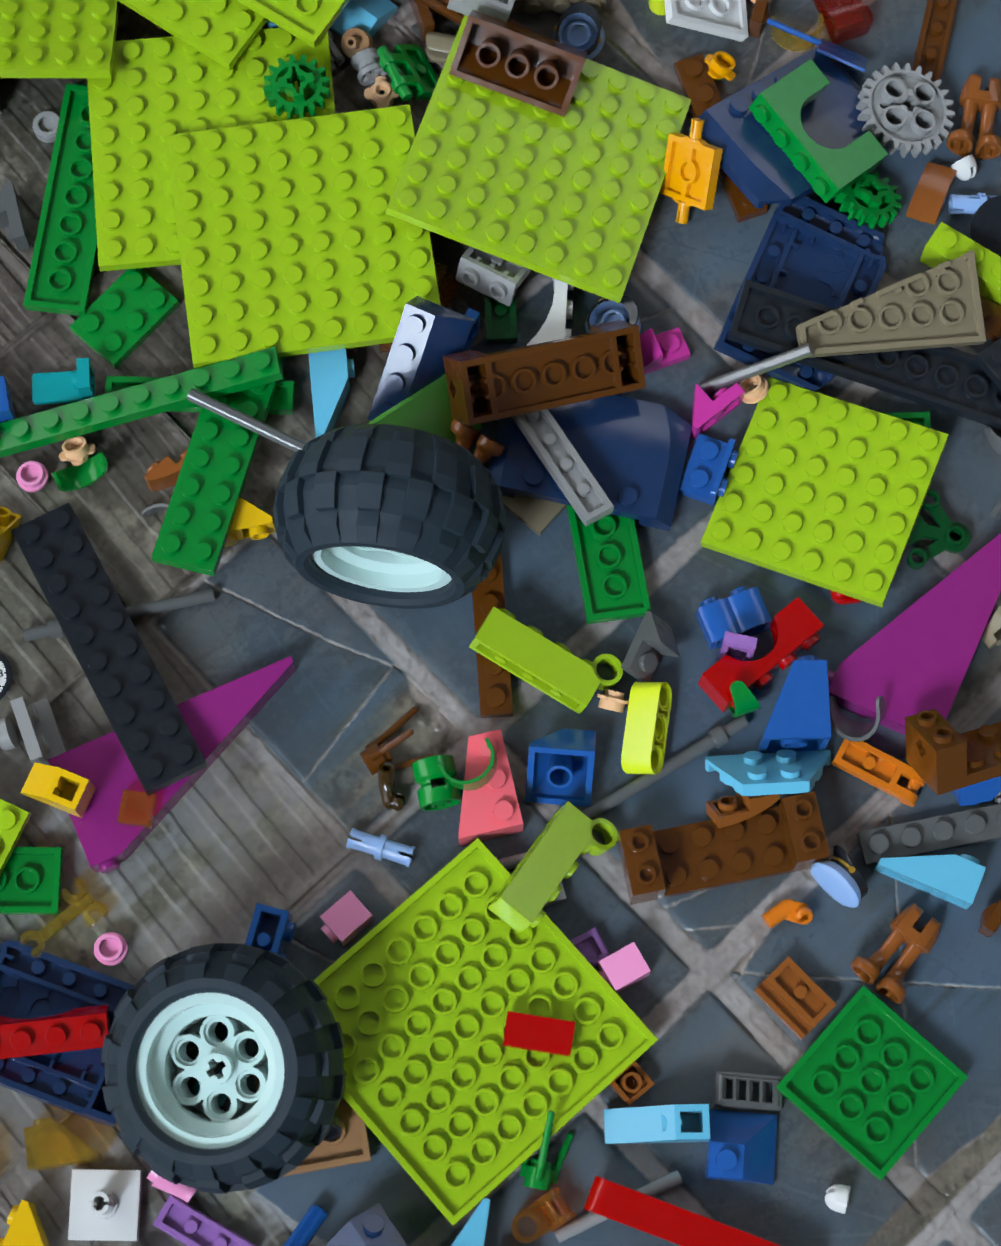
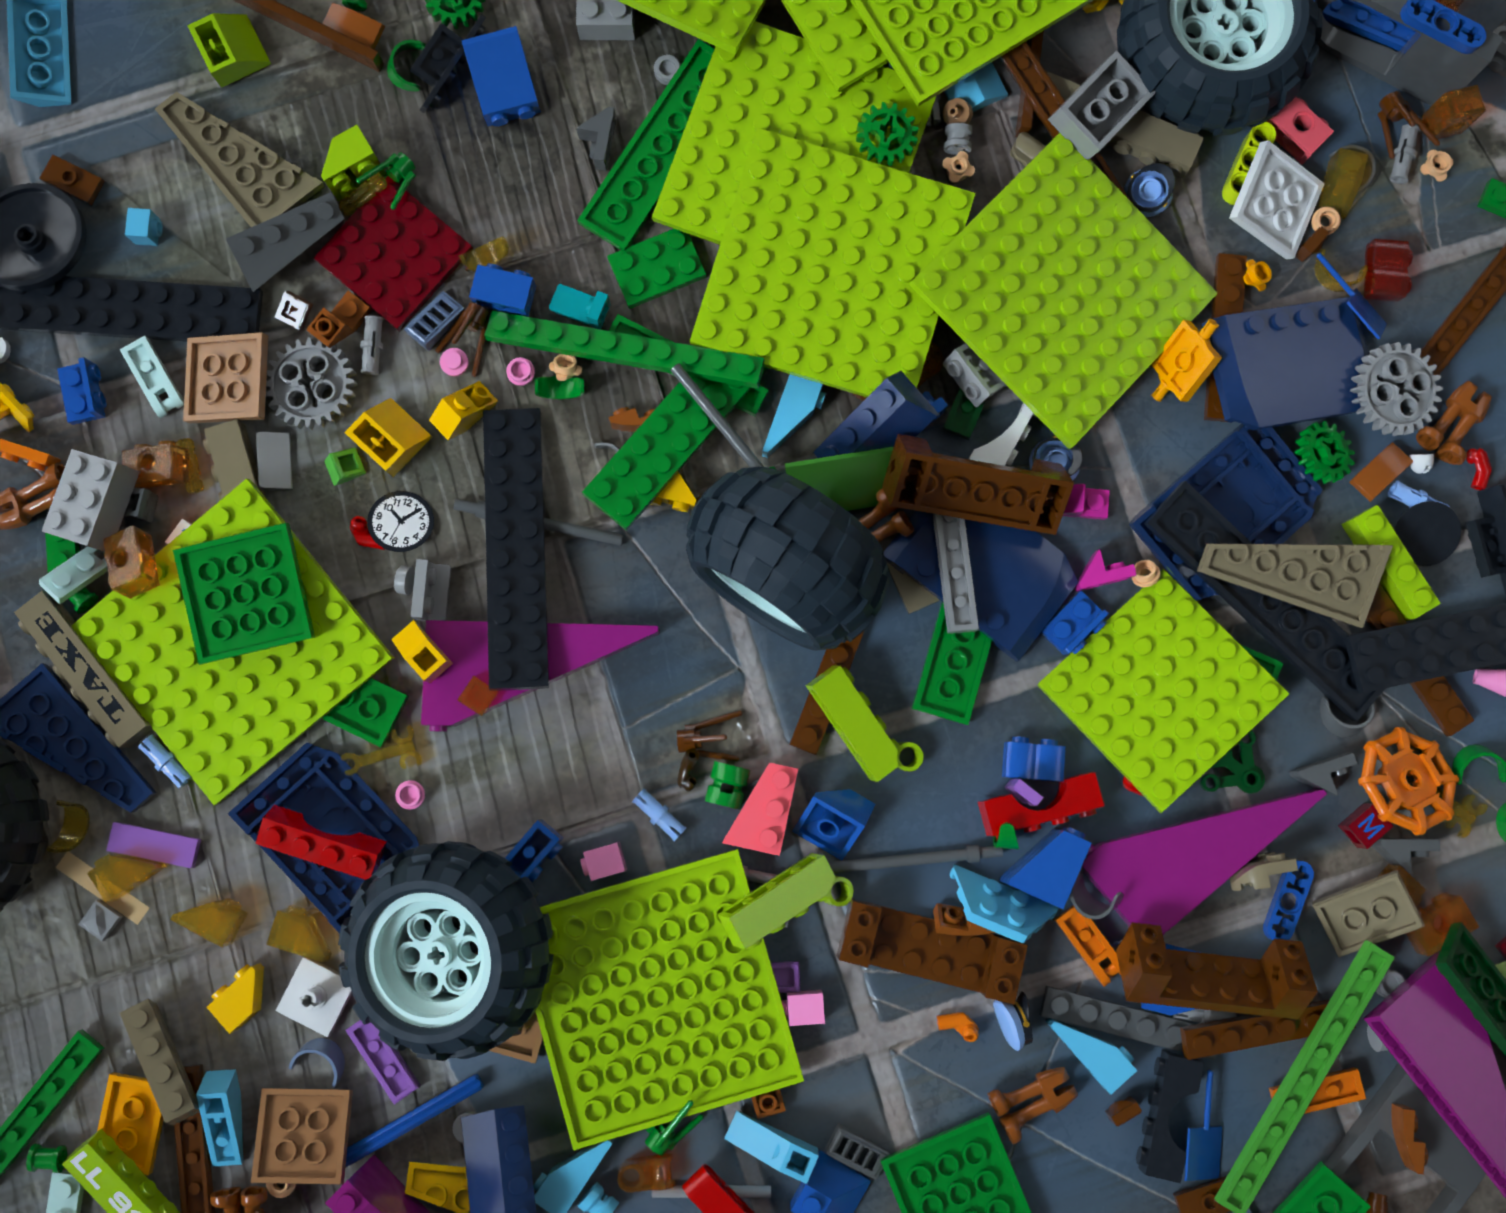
camera: 25 degrees right, 10 degrees up
(416, 71) = (996, 163): green plate -> none
(477, 782) = (763, 807): green helmet -> none
(518, 63) = (1085, 199): reddish brown slope -> none
(538, 1034) = (711, 1033): red tile -> none
(612, 701) = (901, 784): light nougat plate -> none
(646, 728) = (917, 820): neon yellow beam -> none
(648, 646) = (957, 749): dark grey slope -> none
(758, 368) = (1157, 562): flat silver bar -> none
(794, 998) = (930, 1096): dark orange plate -> none
(824, 168) = (1286, 351): green arch -> none

